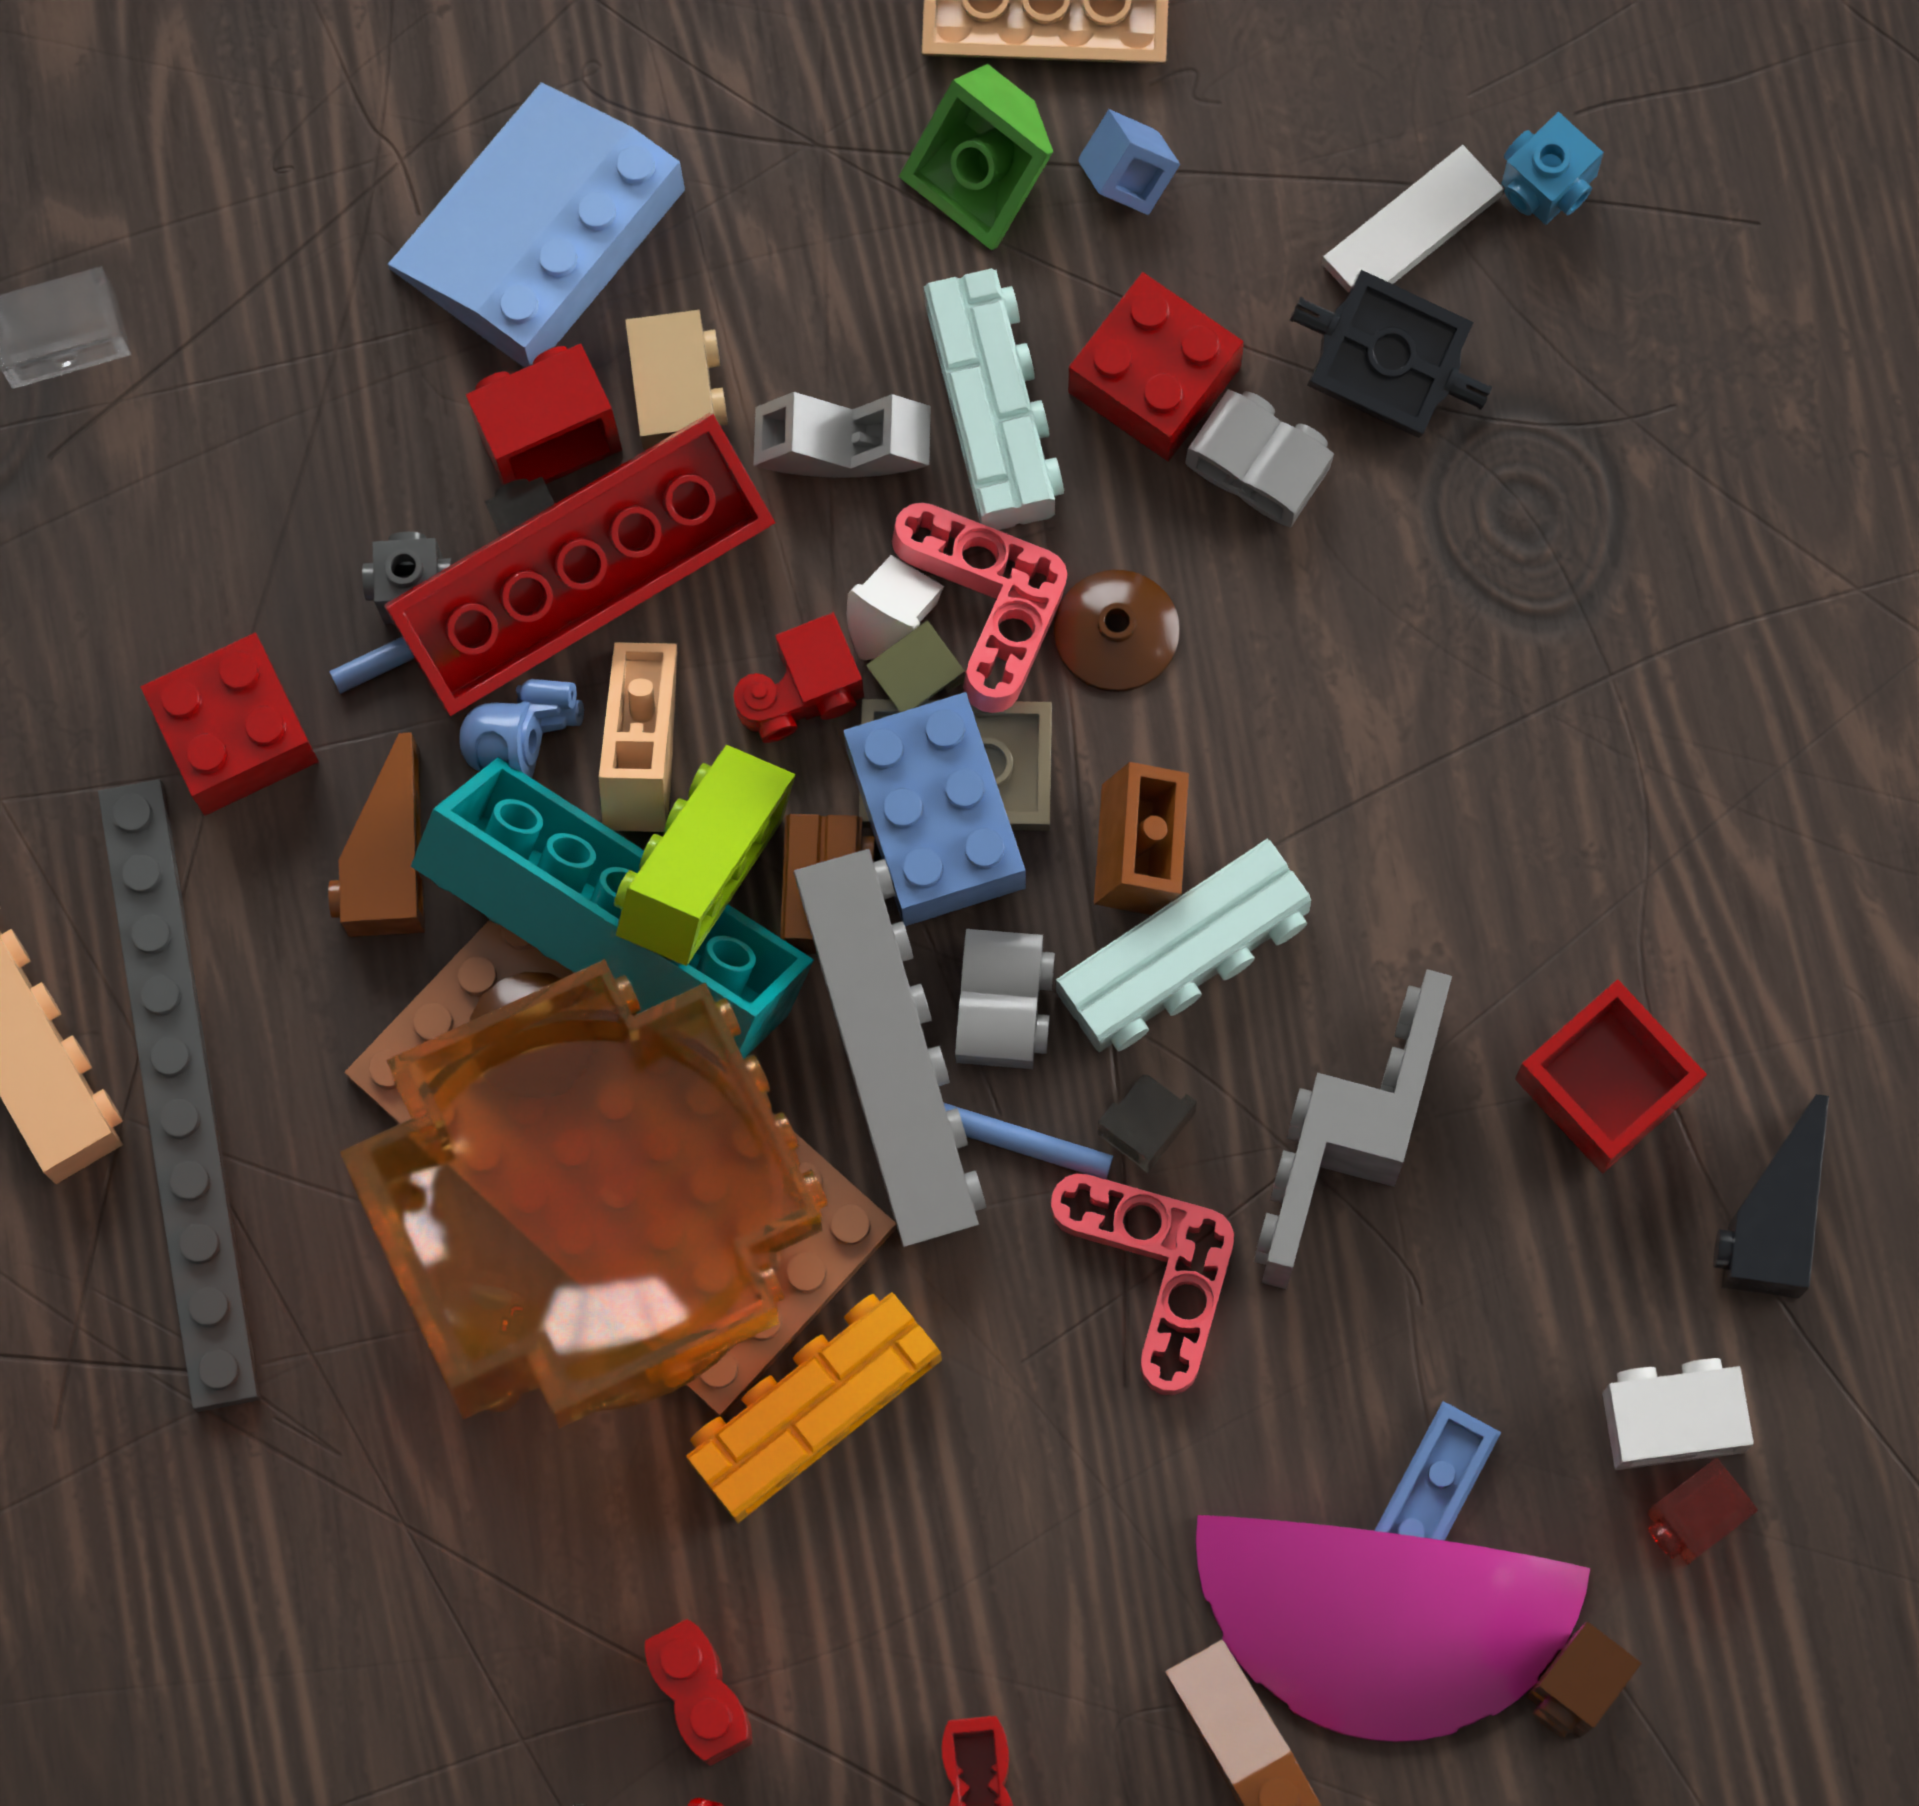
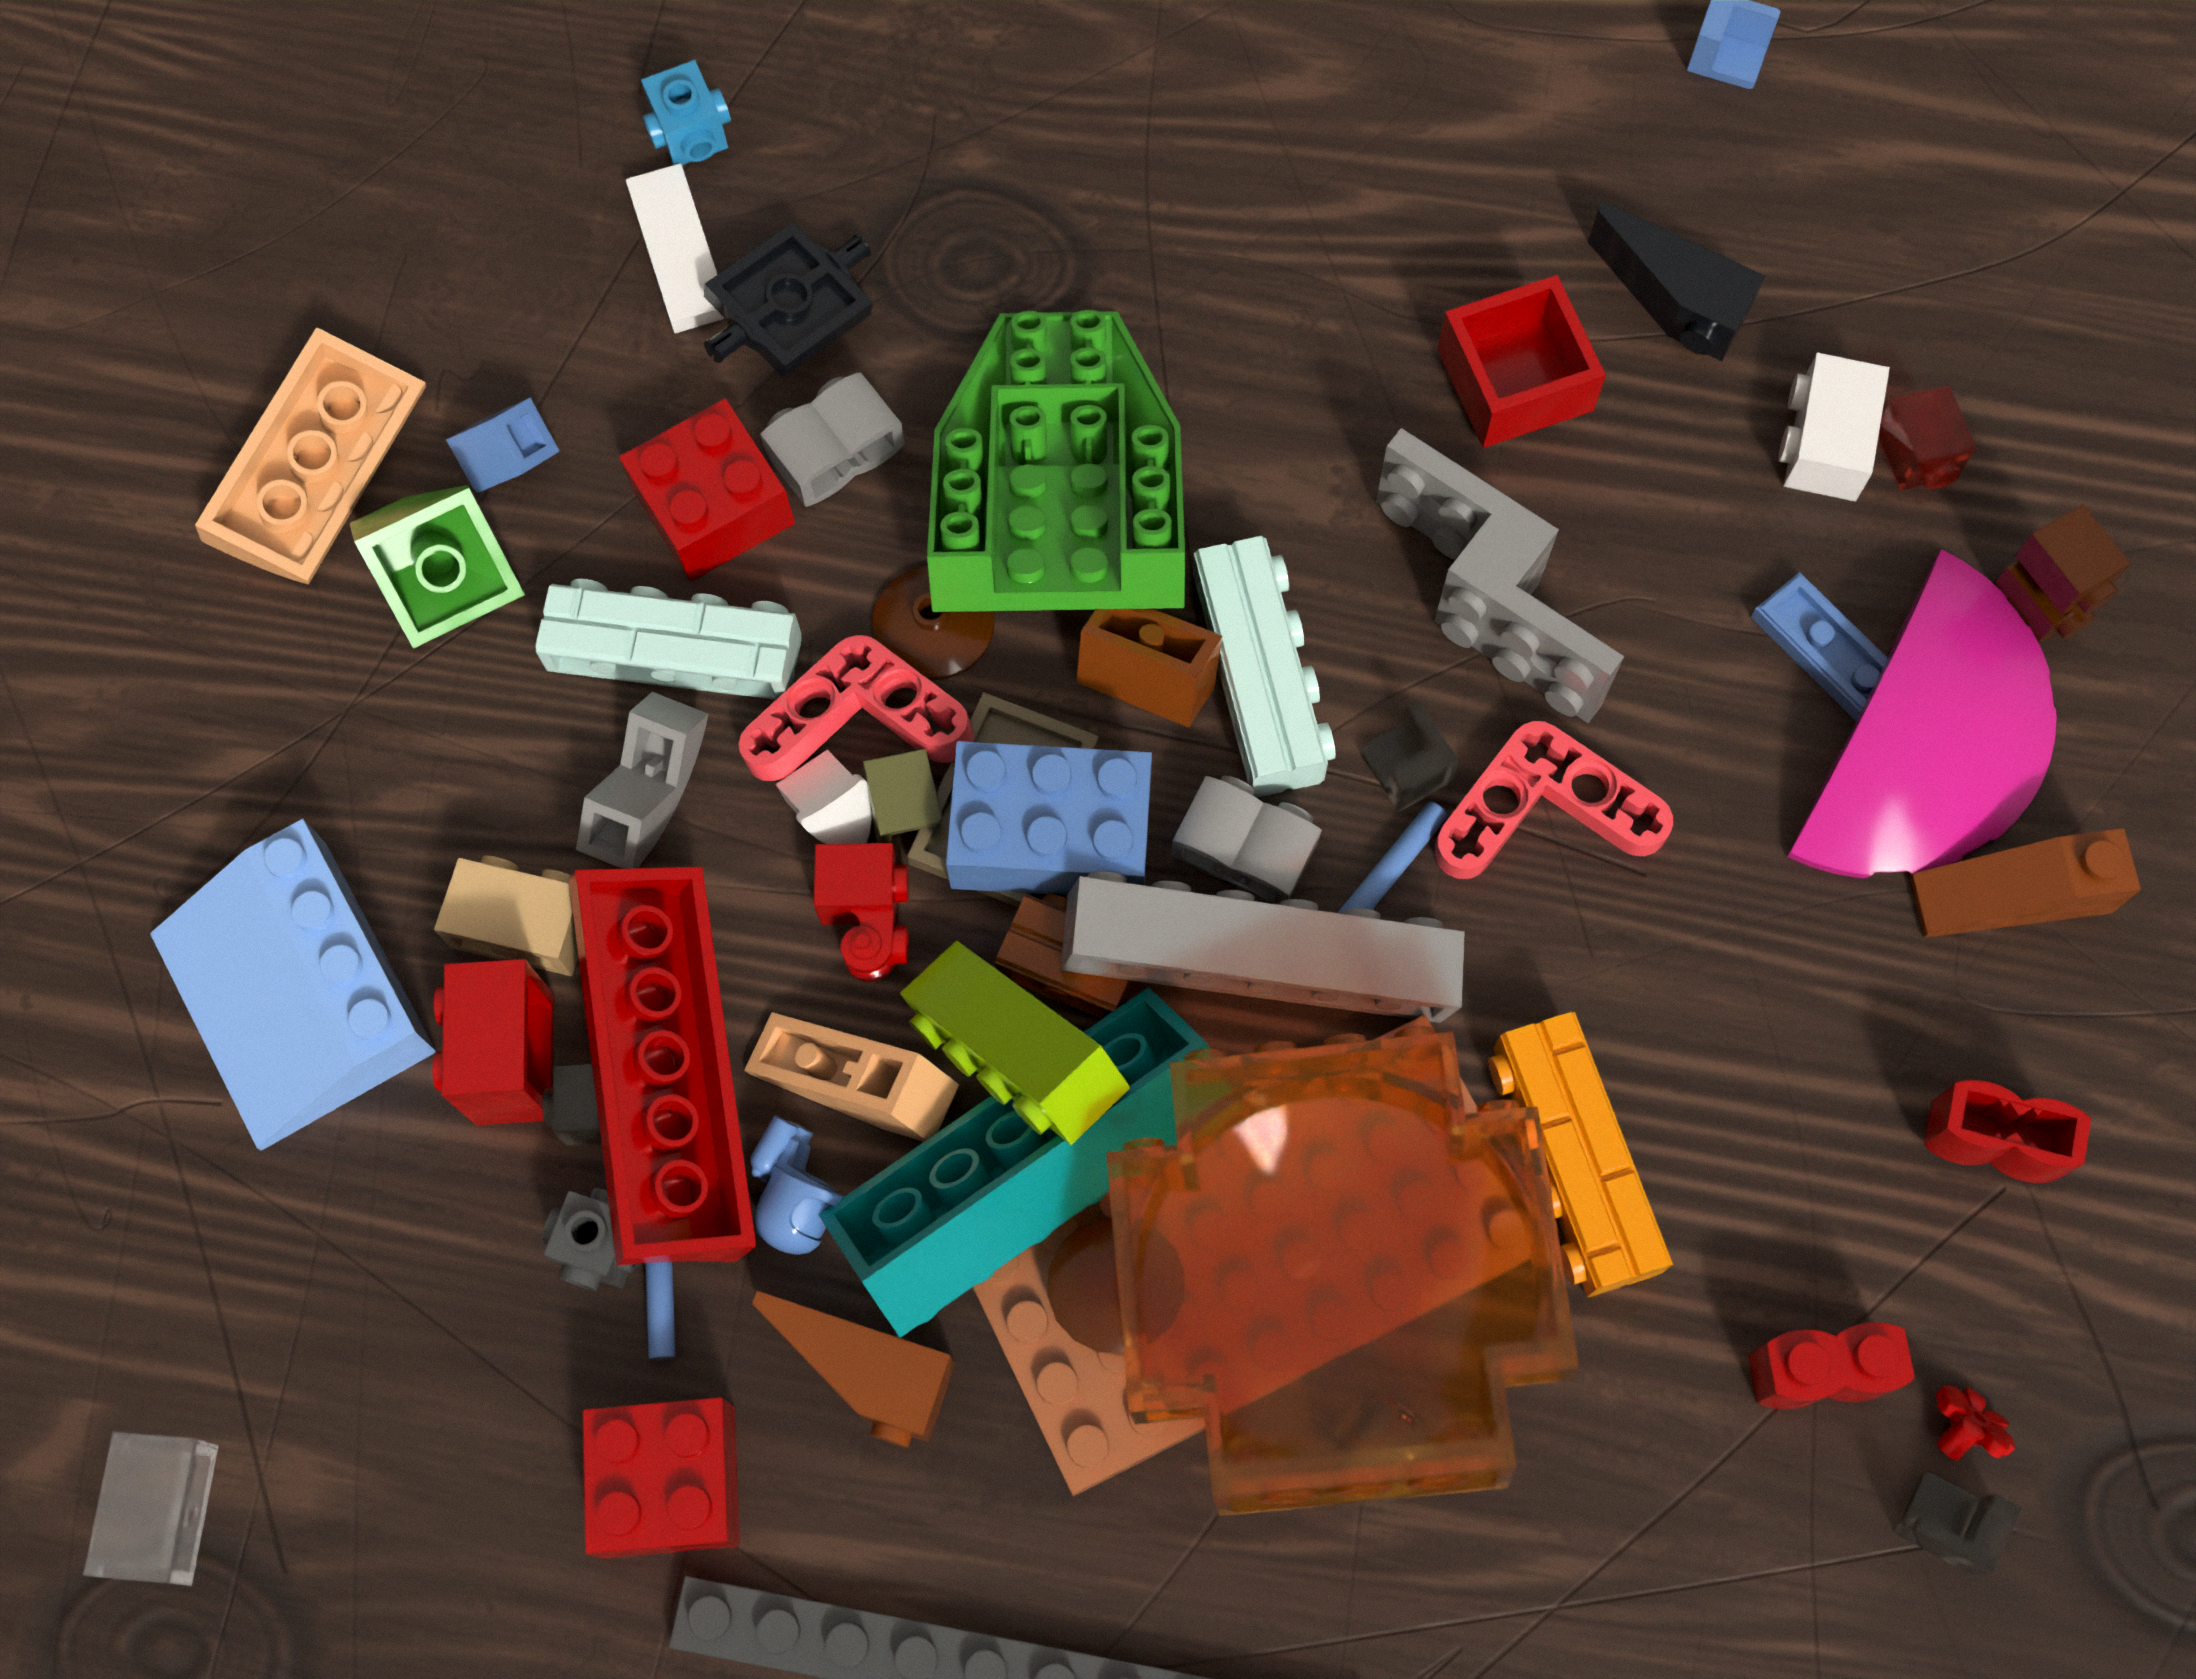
camera: 70 degrees left, 5 degrees down
(1301, 674) = (1057, 474): none -> bright green wedge

